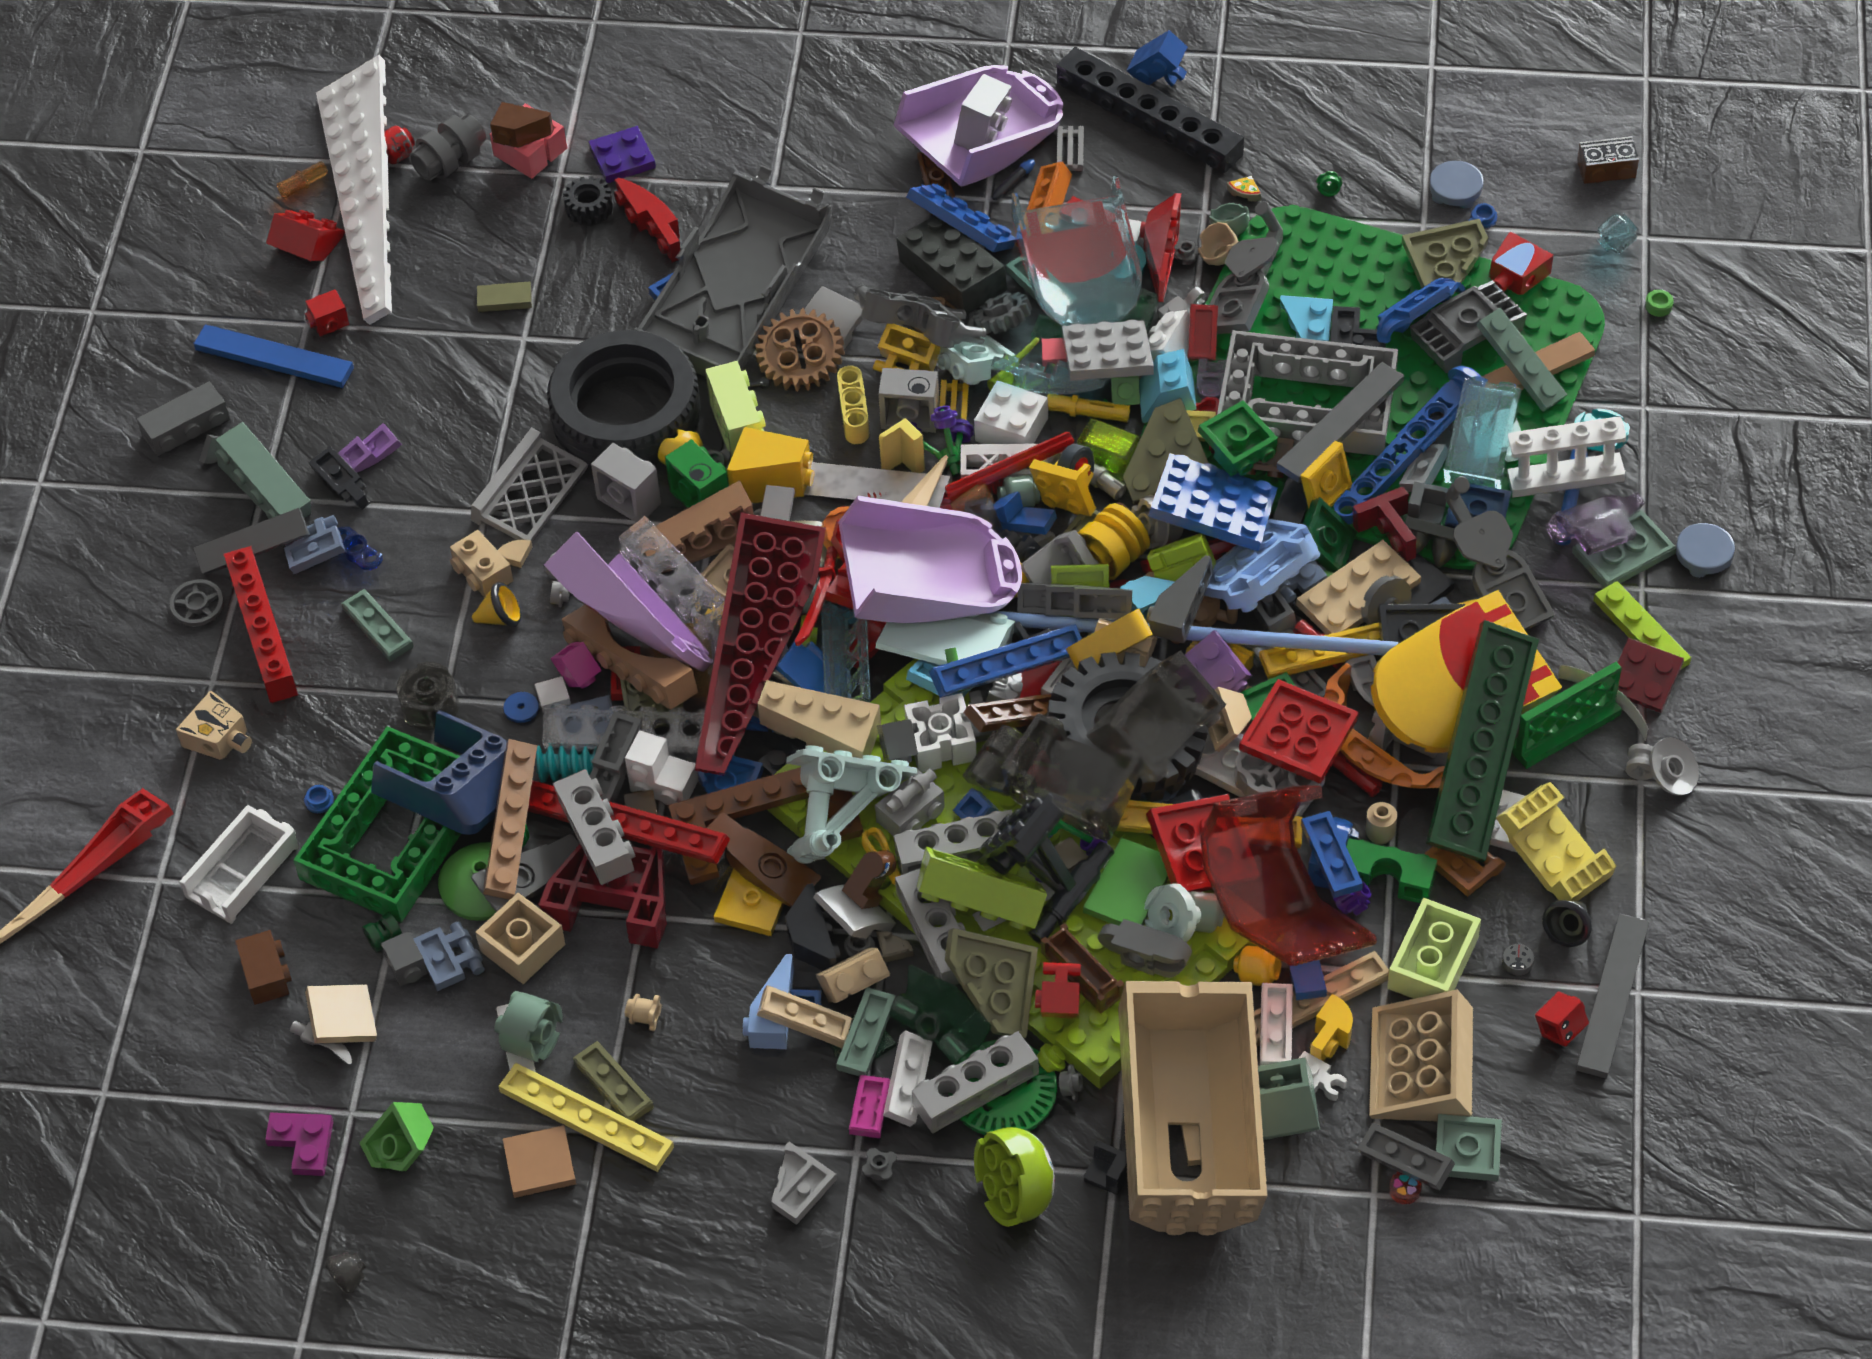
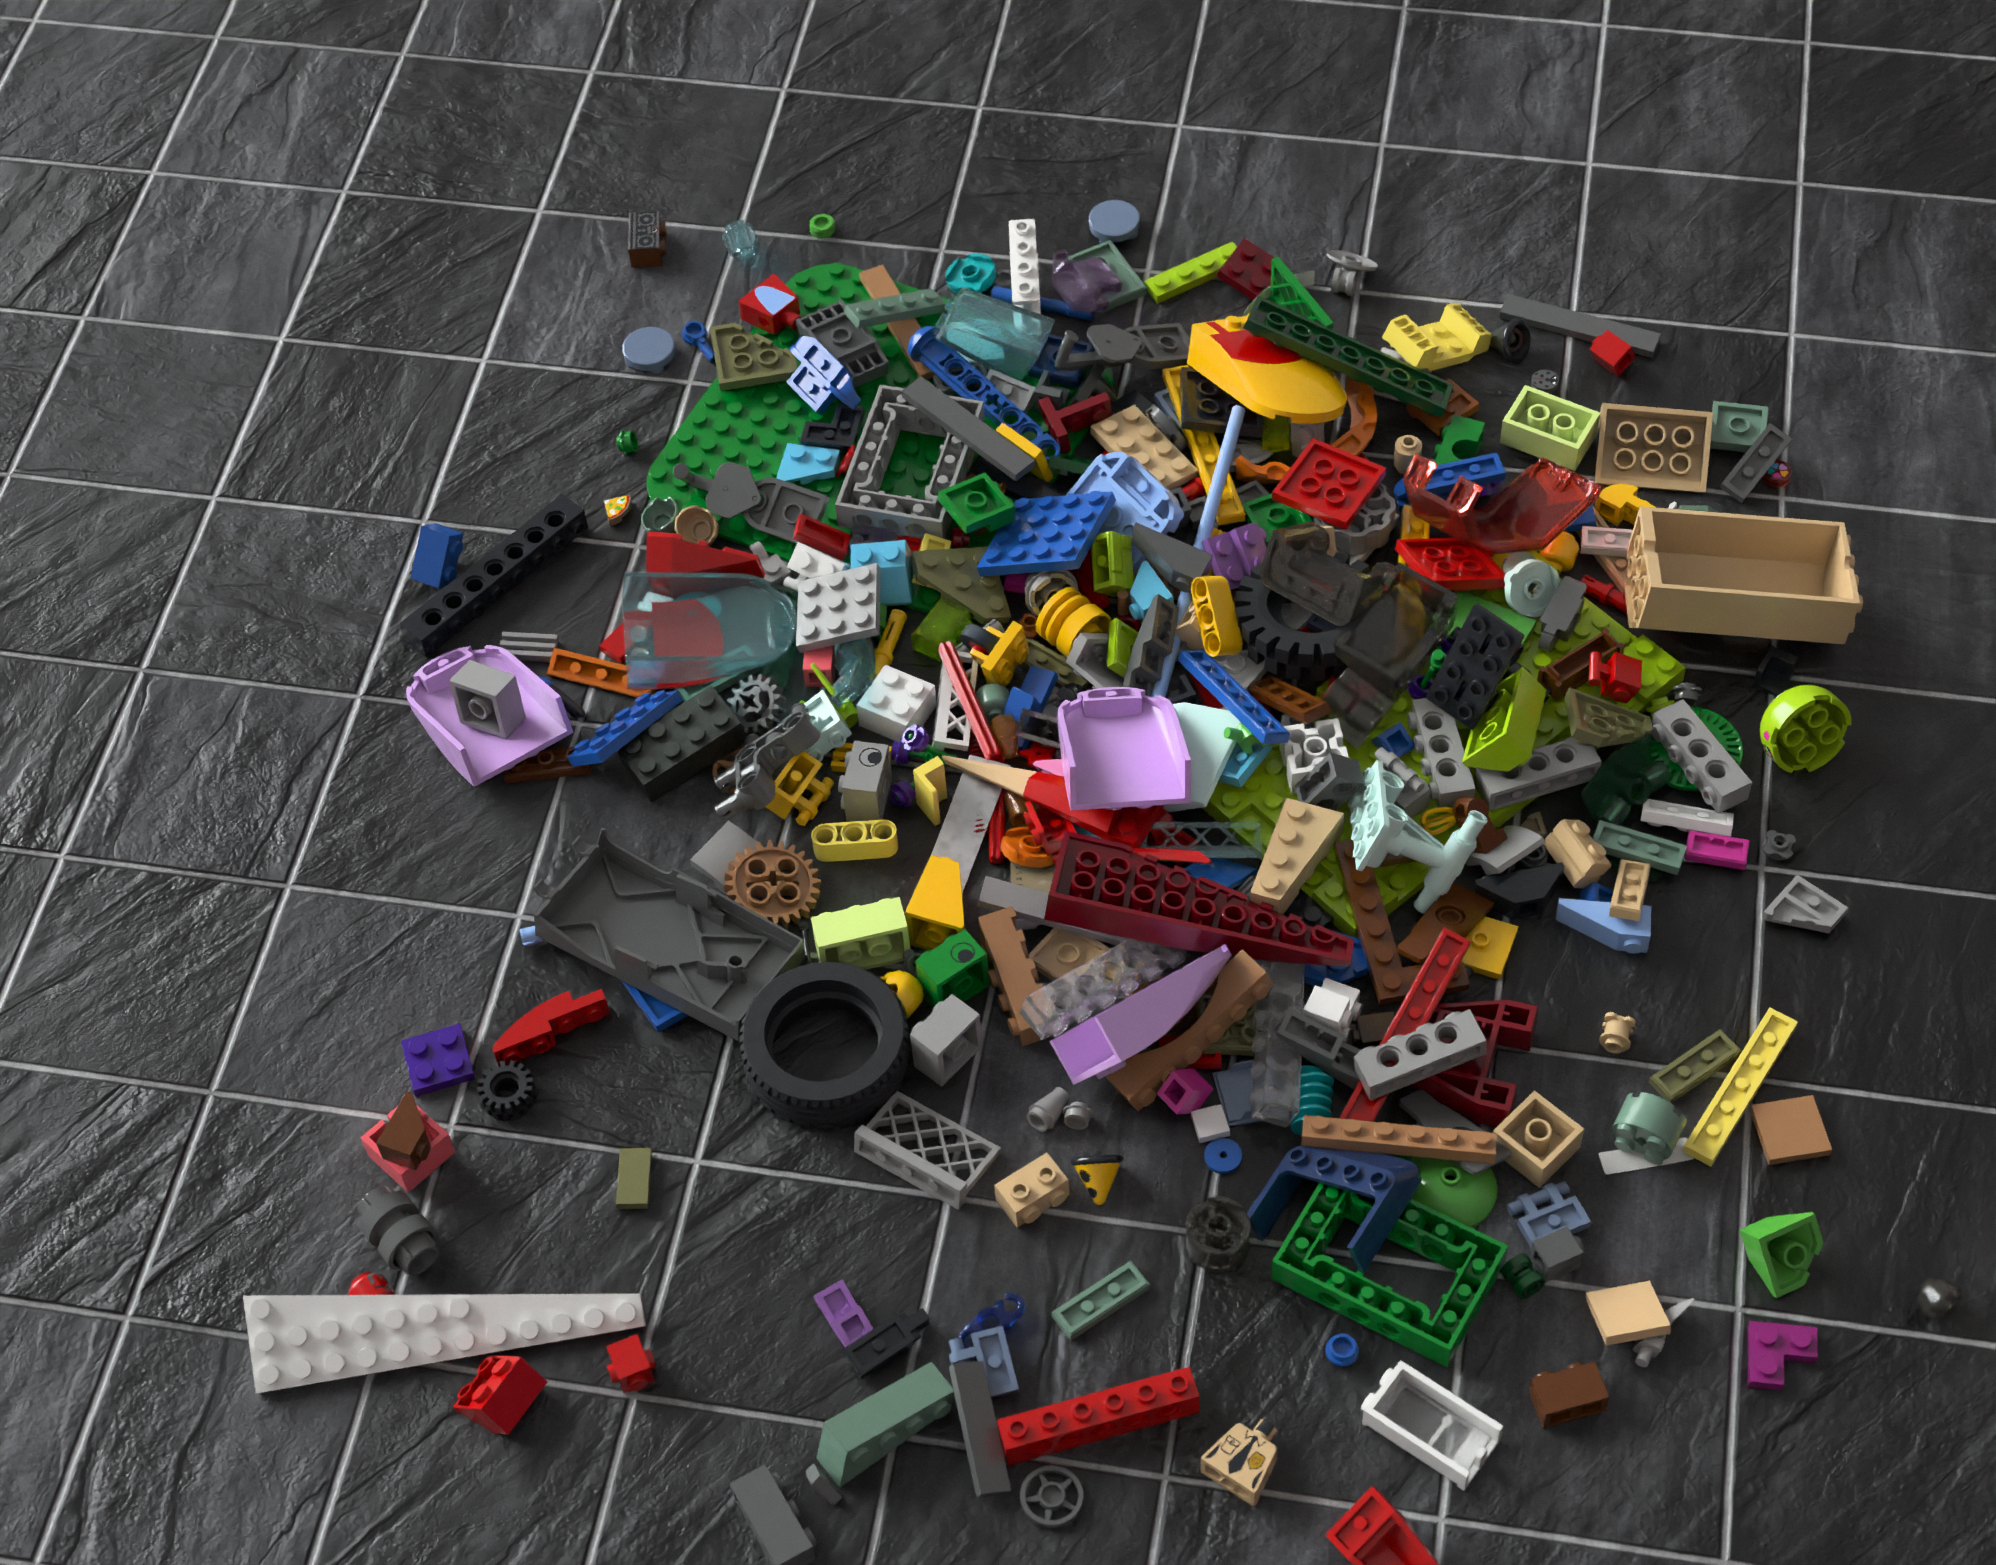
camera: 85 degrees left, 0 degrees up
(273, 356) = (680, 1429): blue tile -> none
(302, 179) = (400, 1404): clear orange axle -> none
(516, 551) = (1013, 1159): tan tile -> none

